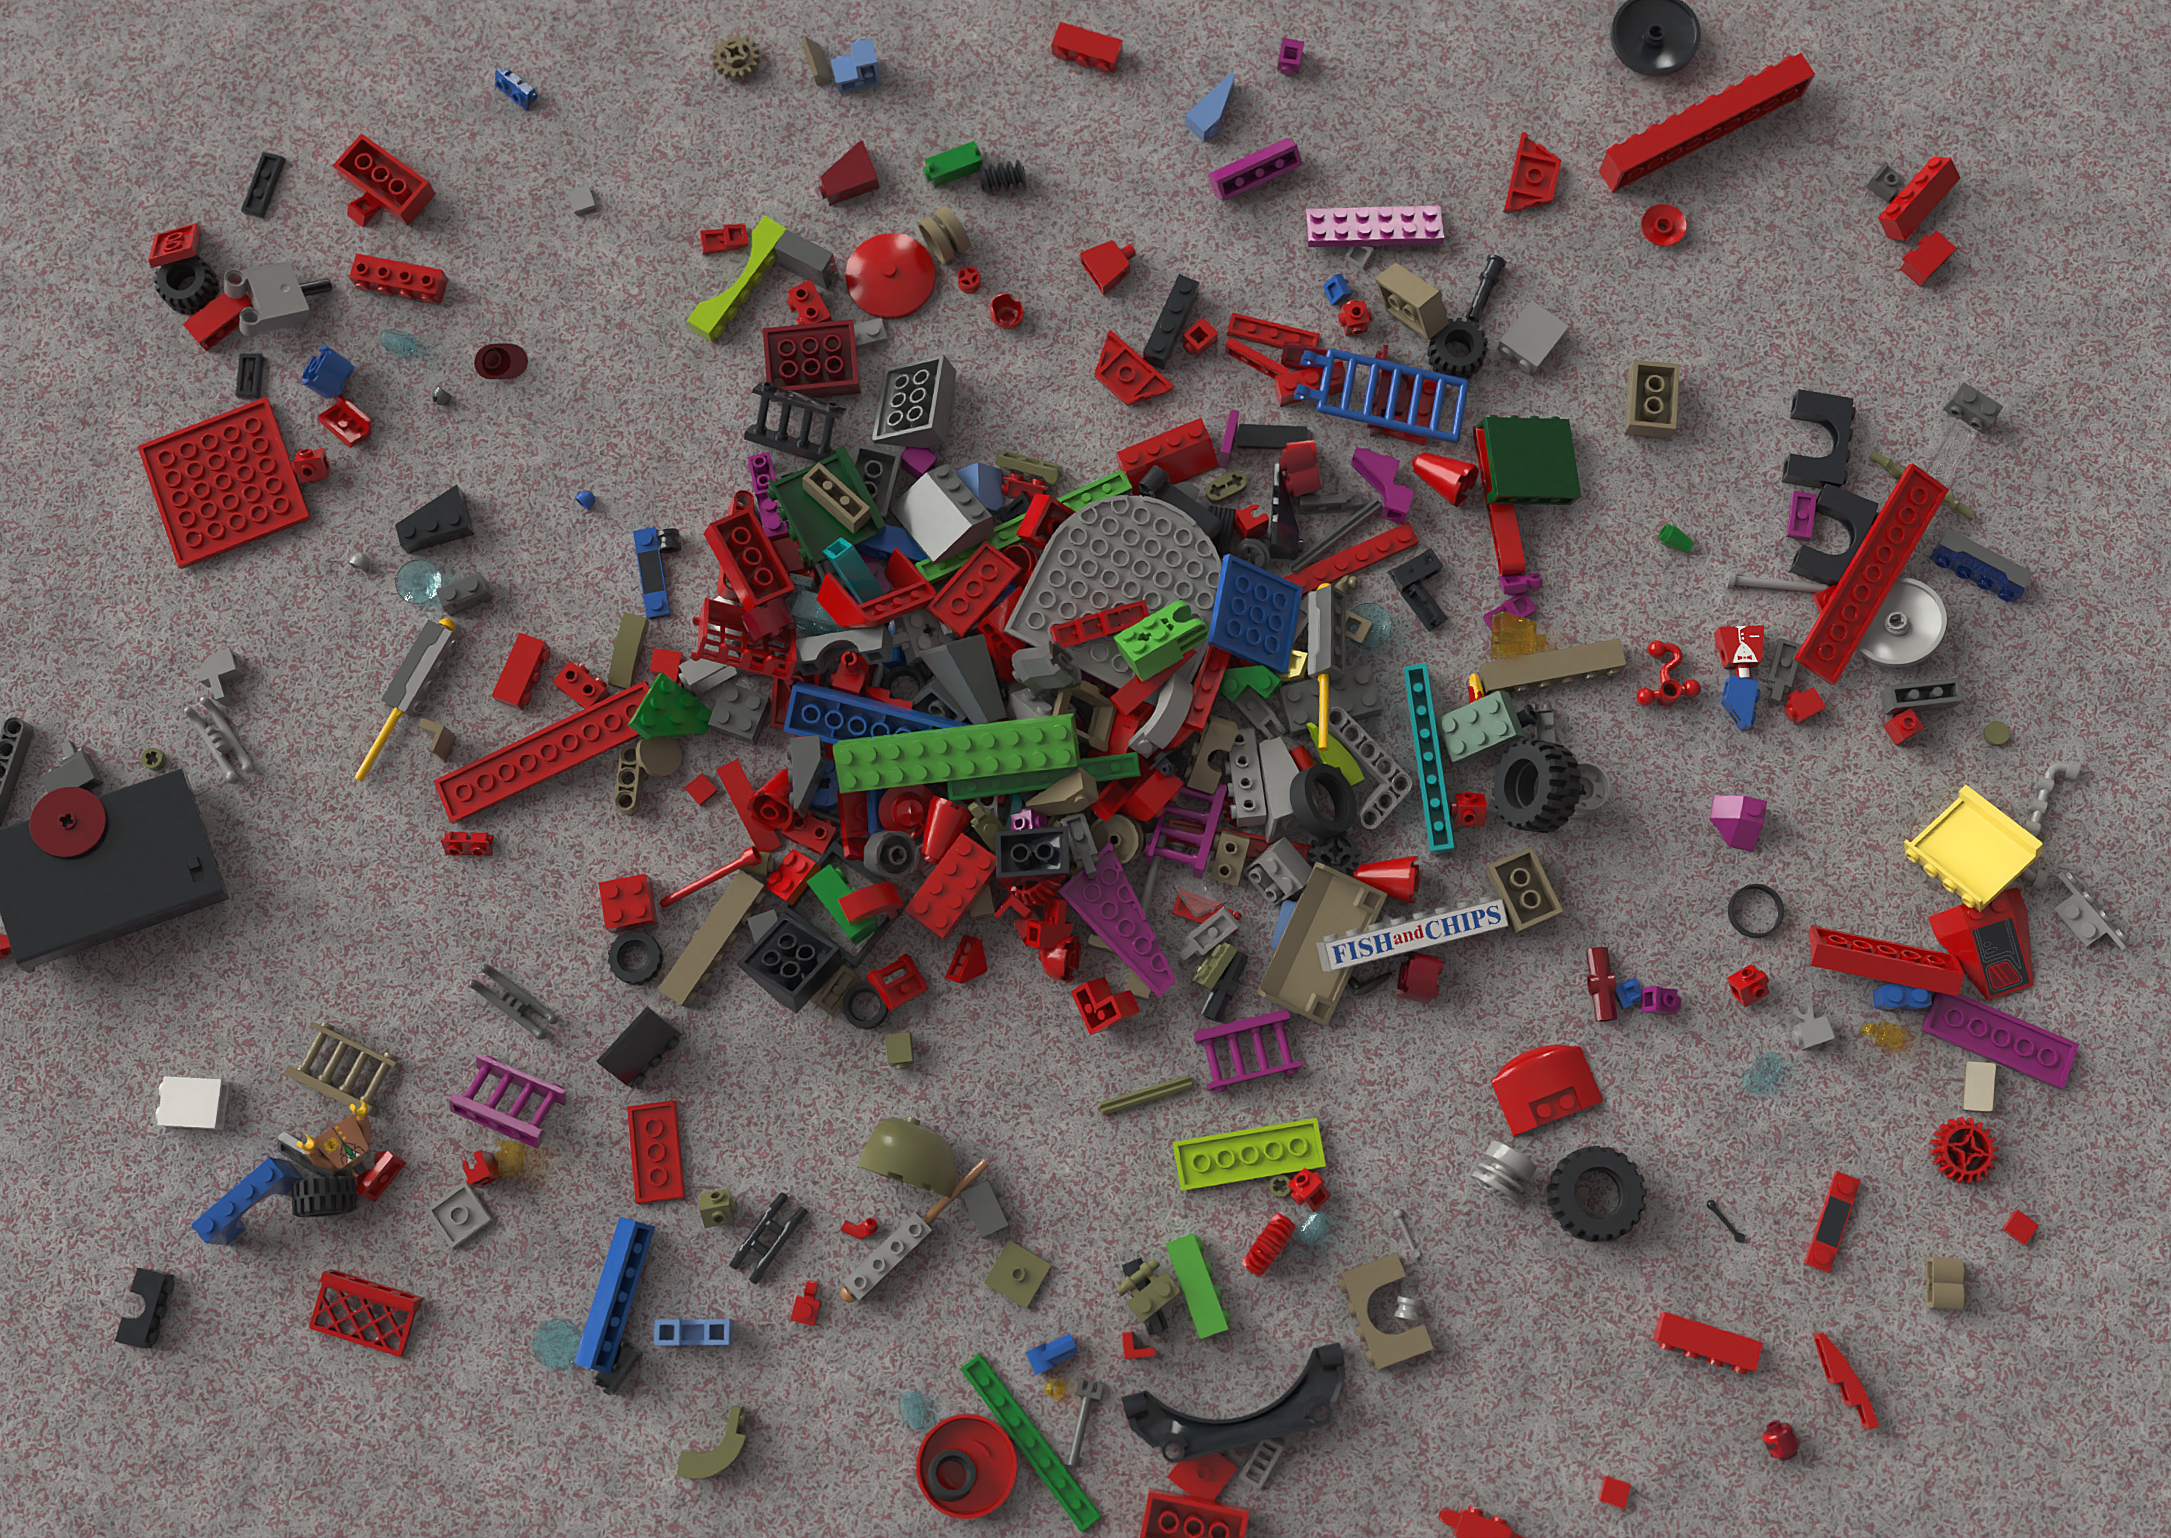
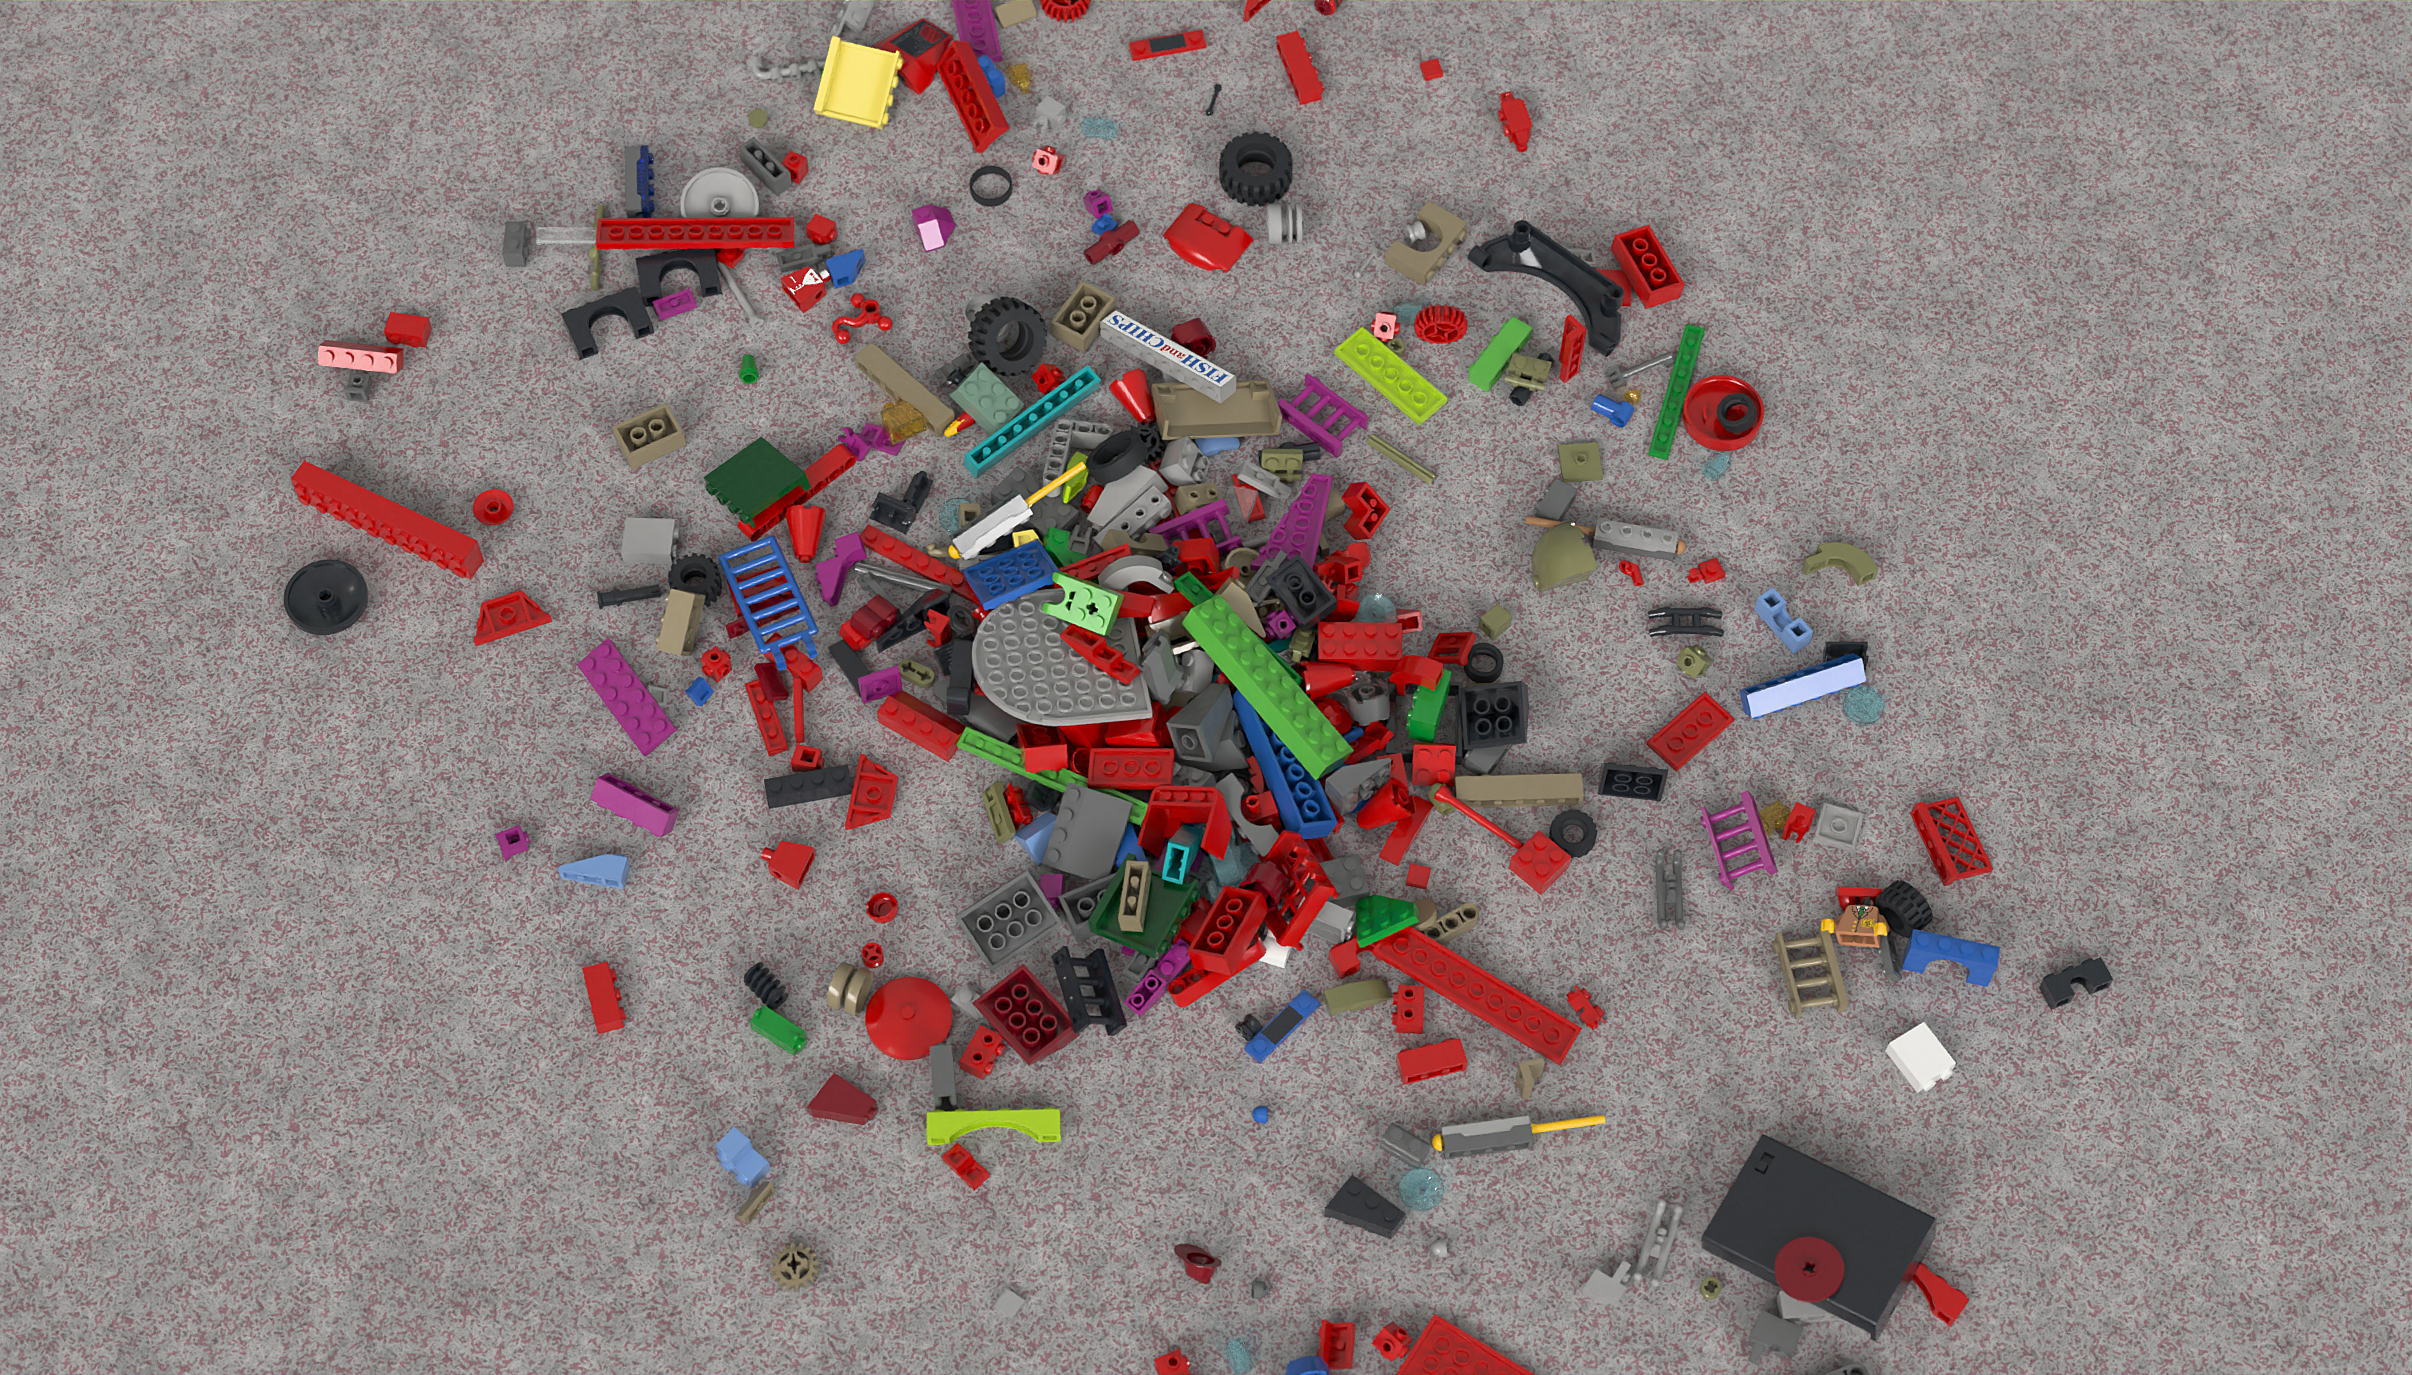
camera: 130 degrees left, 15 degrees down
(970, 934) = (1377, 604): none -> clear light blue dish

